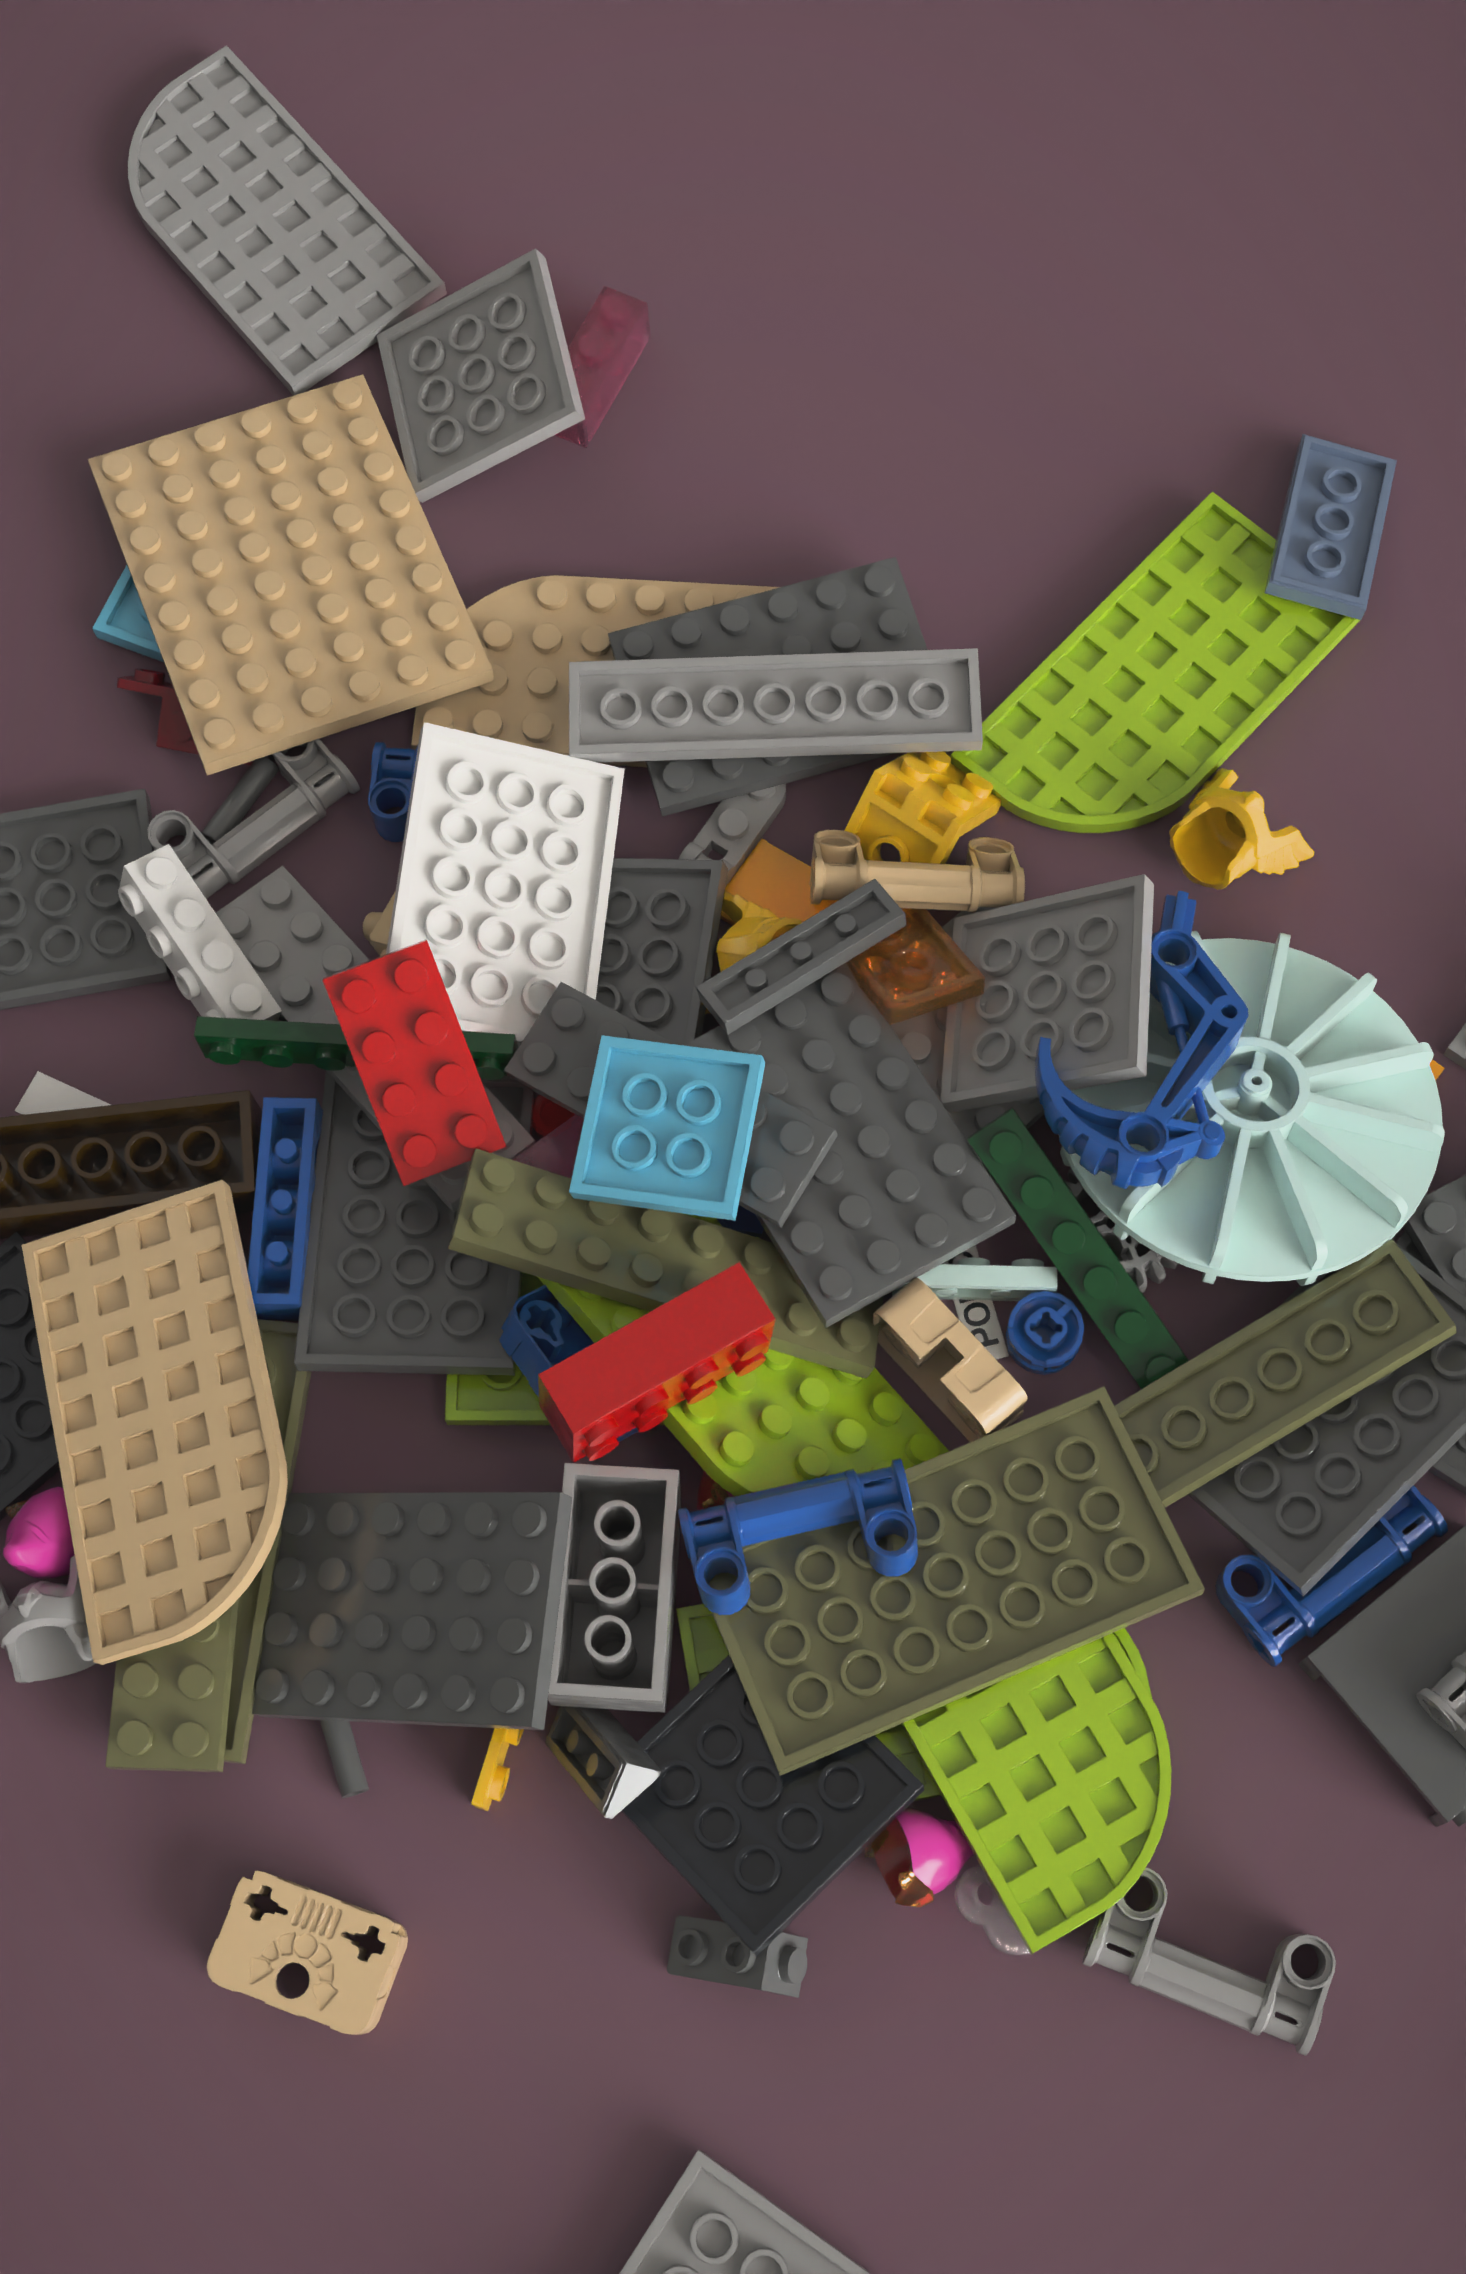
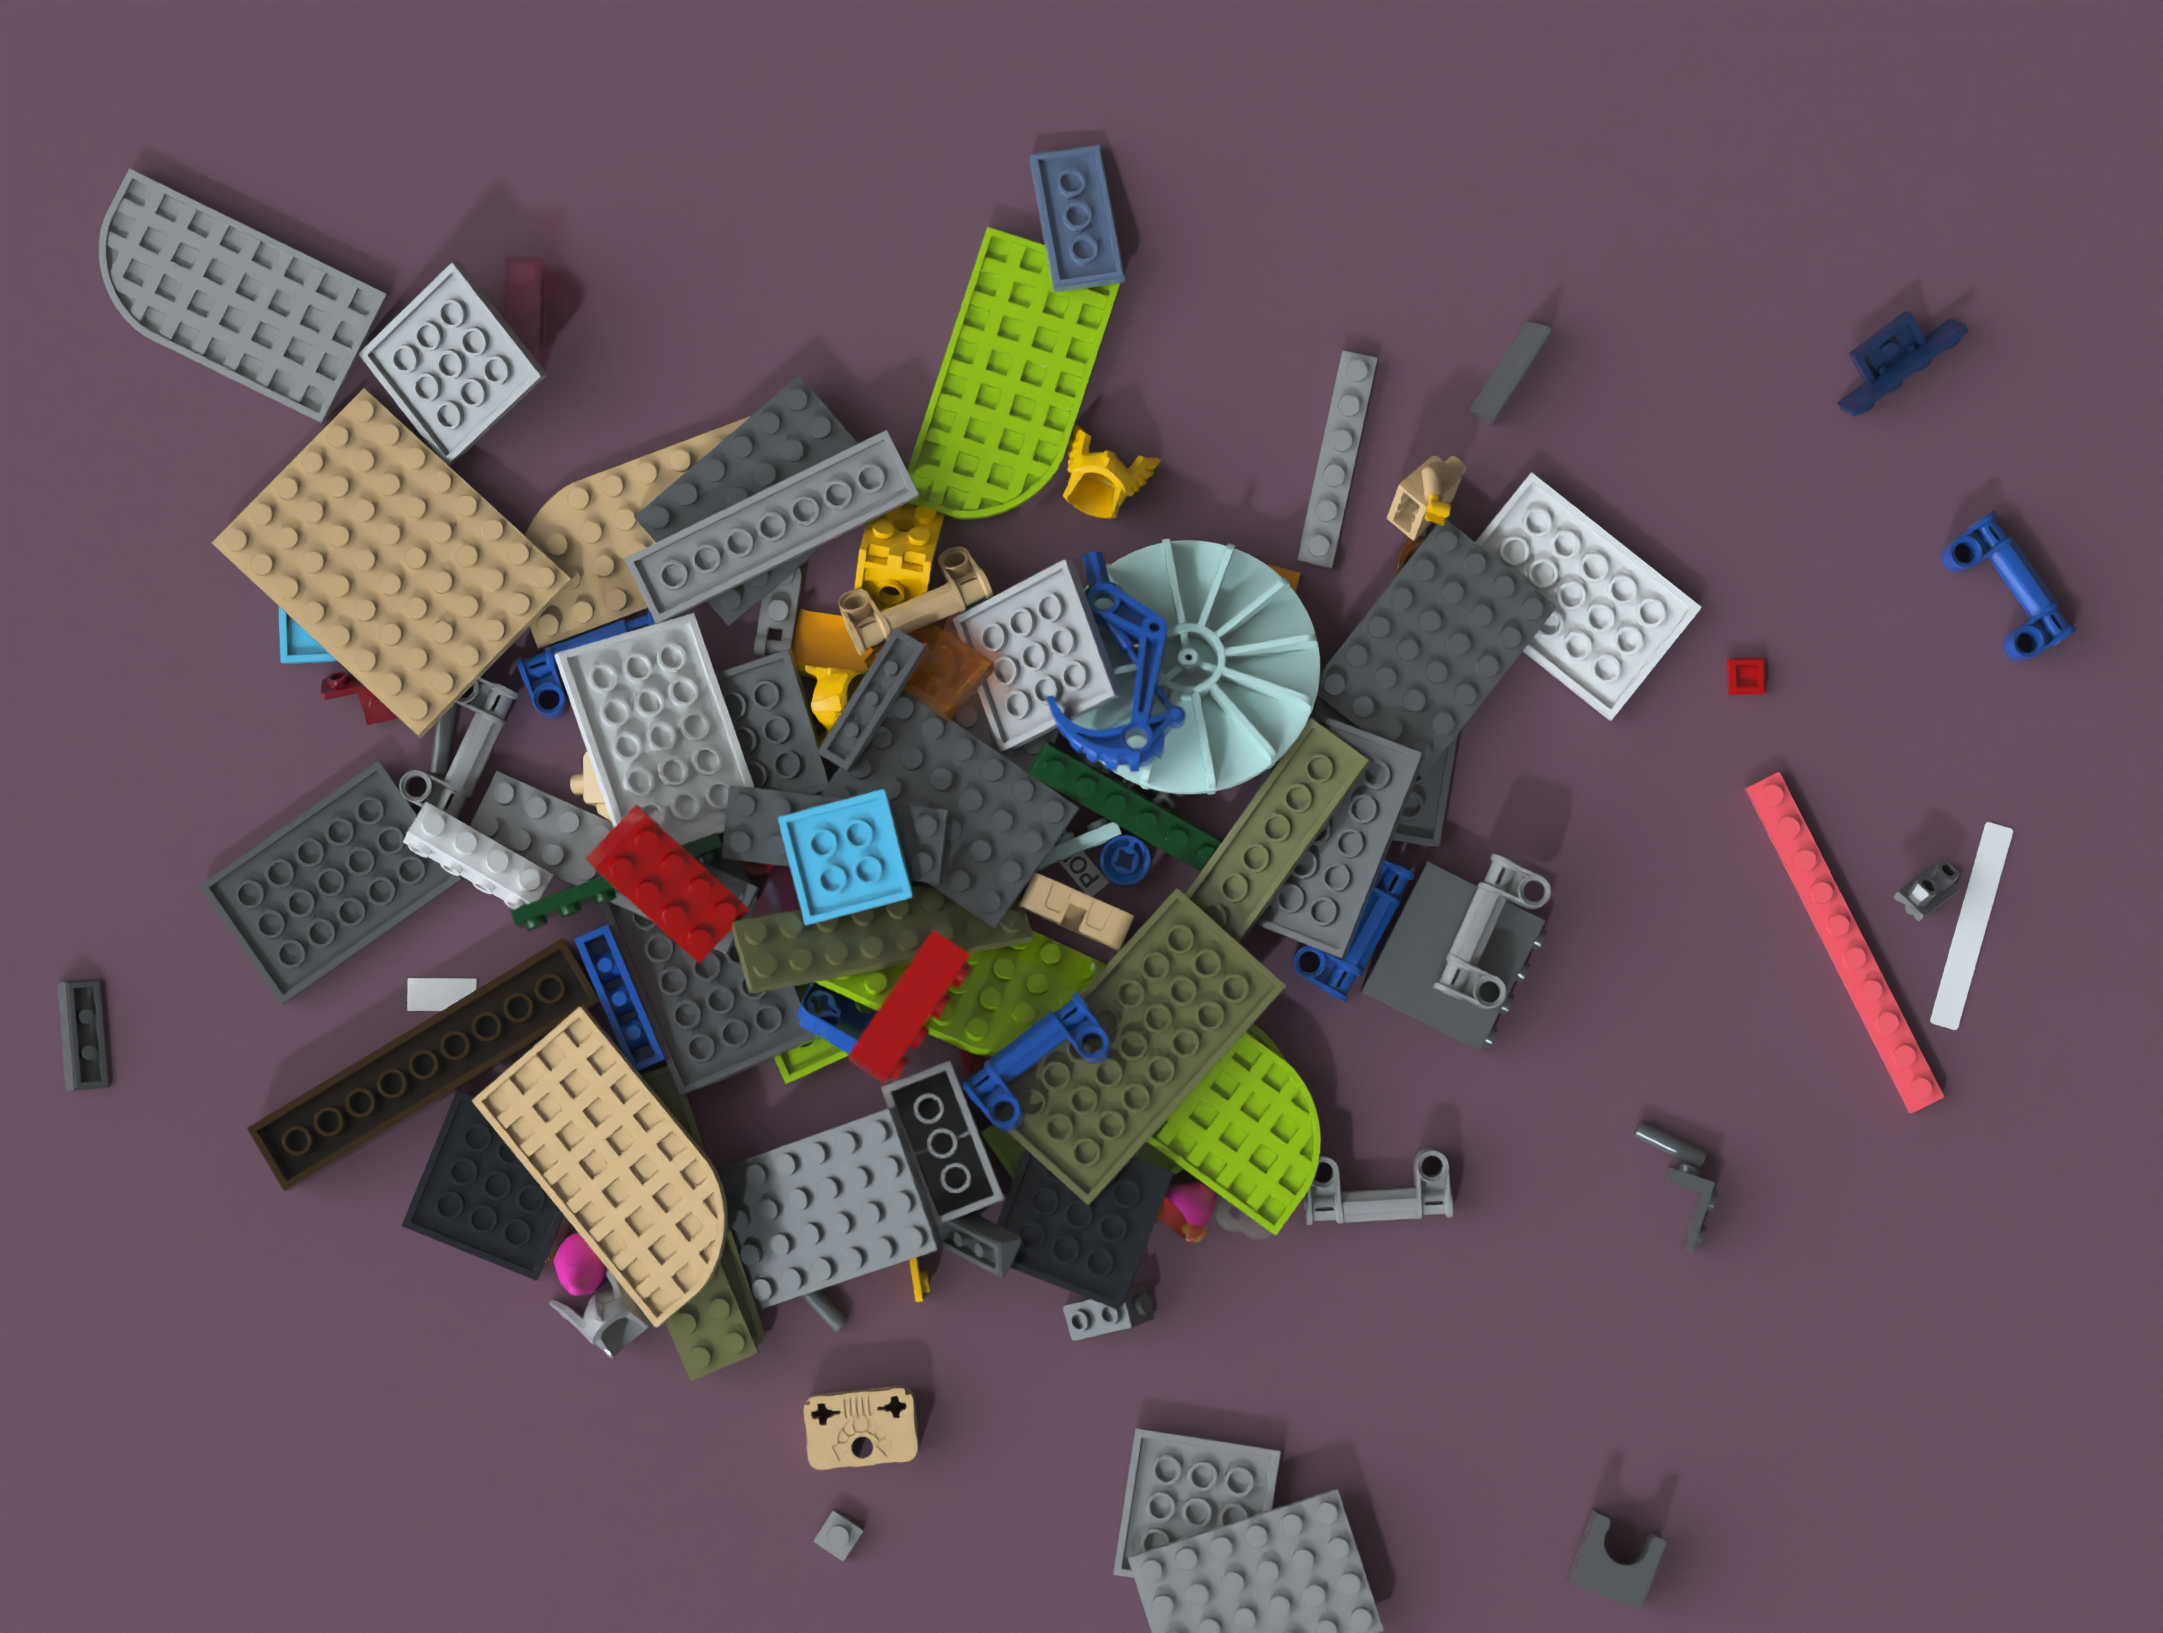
camera: 30 degrees left, 15 degrees up
(198, 2099) = (838, 1535): none -> light grey plate

